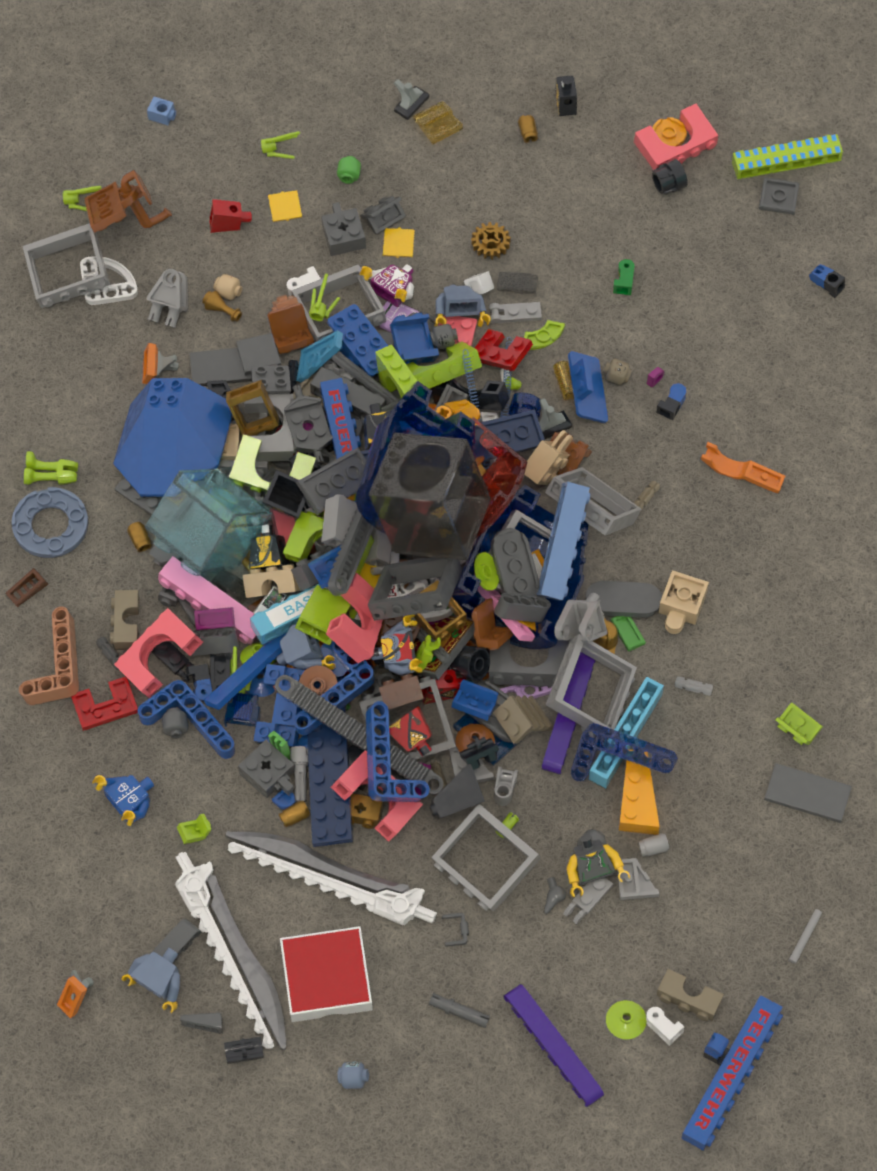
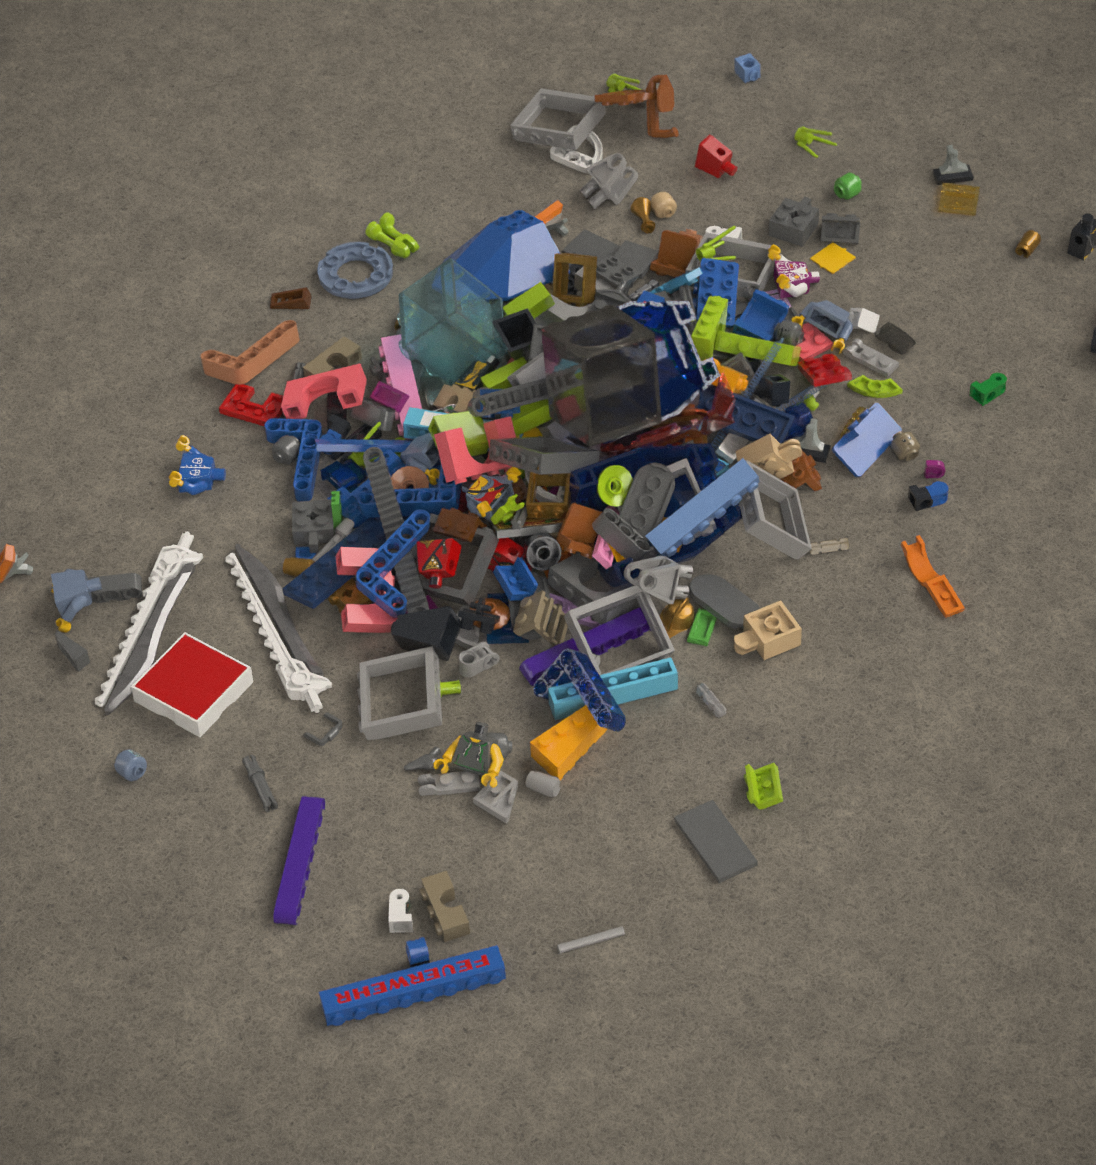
camera: 45 degrees right, 15 degrees down
(194, 830) = (215, 526): lime bracket -> none
(243, 1050) = (76, 689): black hips -> none
(285, 206) = (772, 183): yellow piece -> none
(491, 241) = (906, 297): pearl gold gear -> none
(622, 1028) = (377, 895): lime dish -> none

